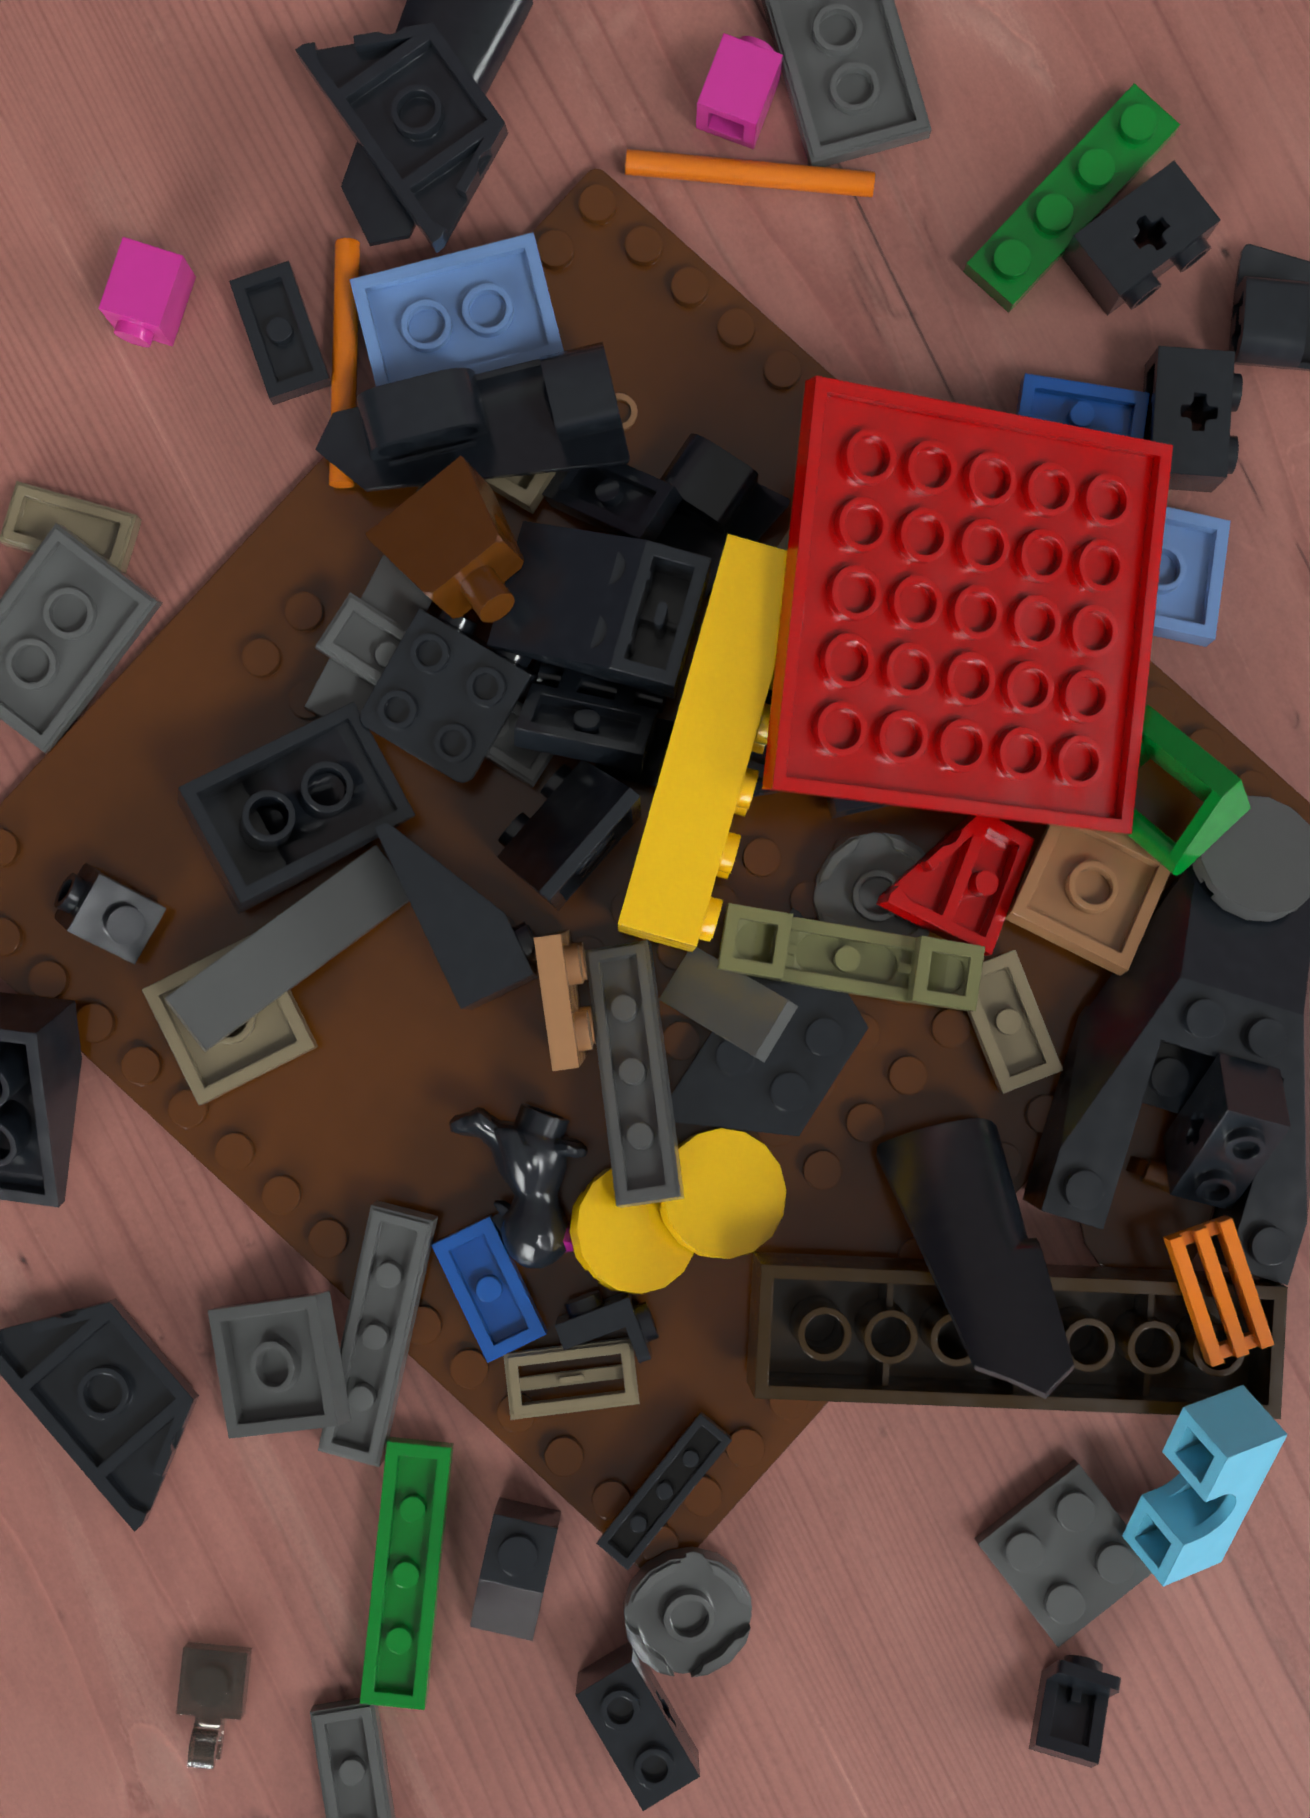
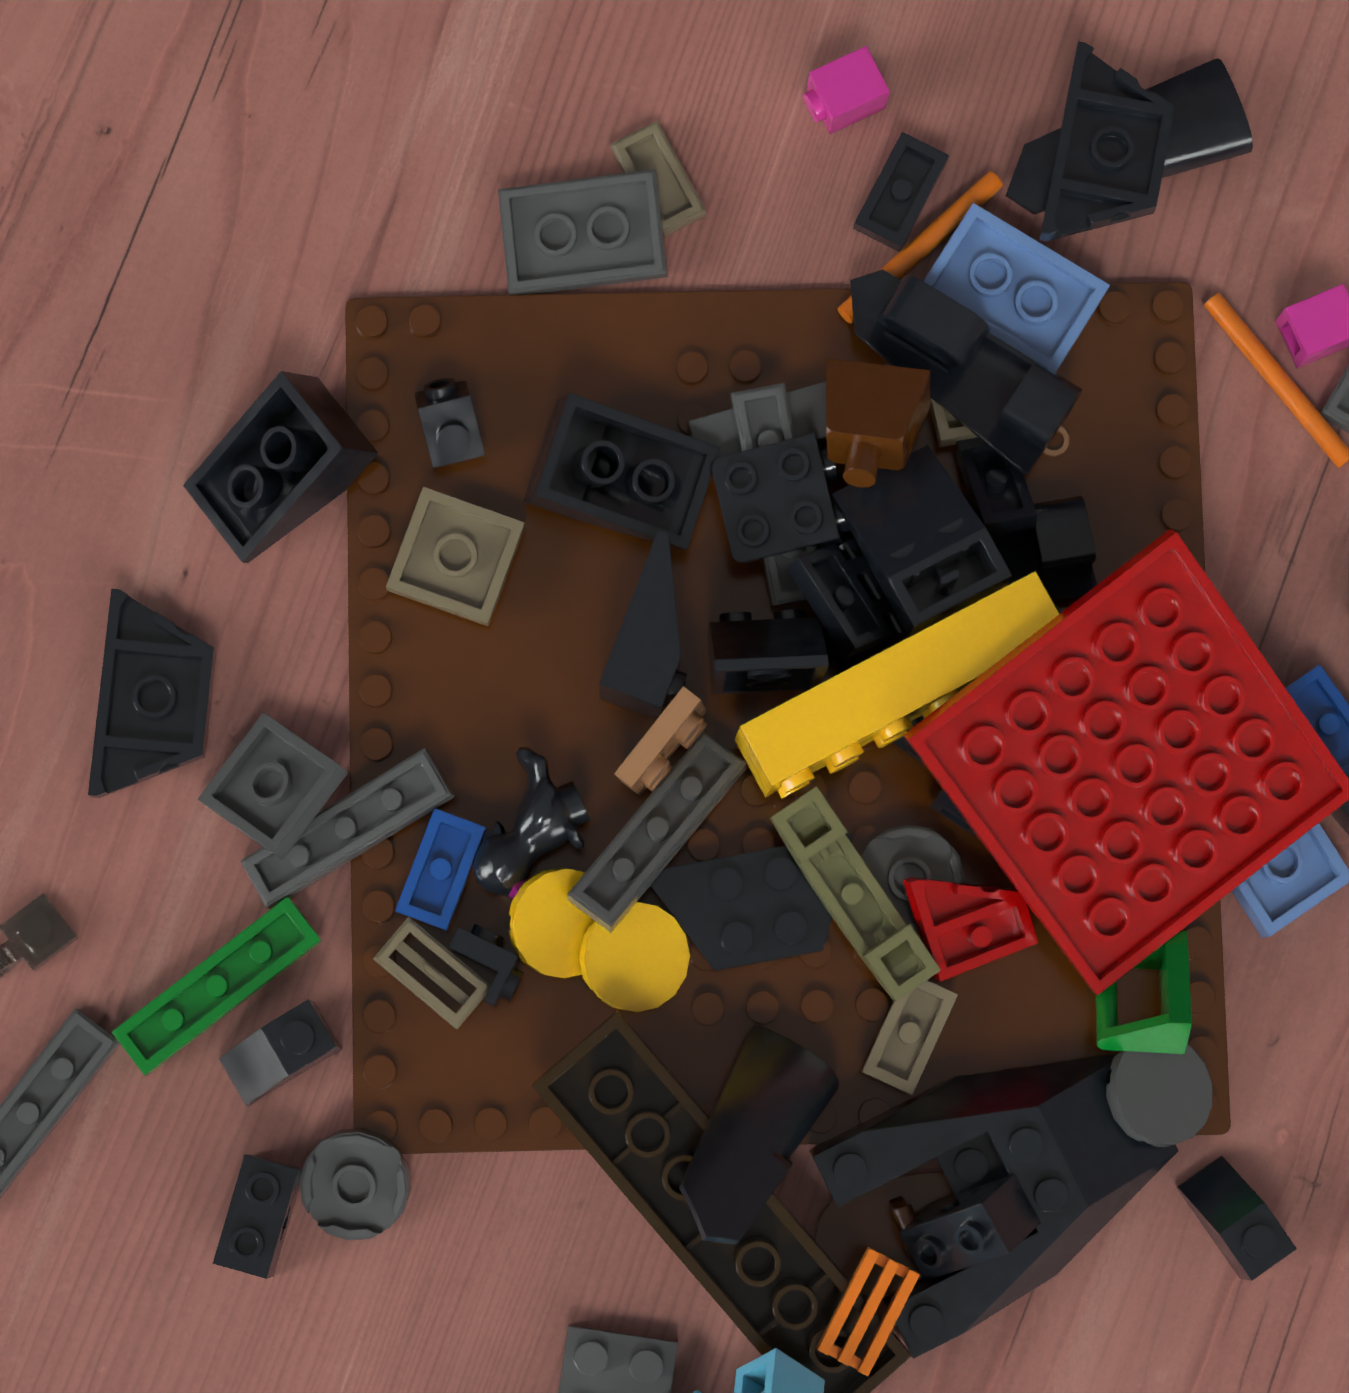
camera: 40 degrees right, 5 degrees down
(288, 949) = (533, 551): dark grey tile -> none
(664, 1490) = (419, 1094): black piece -> none
(728, 1004) = (755, 848): dark grey tile -> none
(1089, 894) = (1036, 1008): medium nougat plate -> none

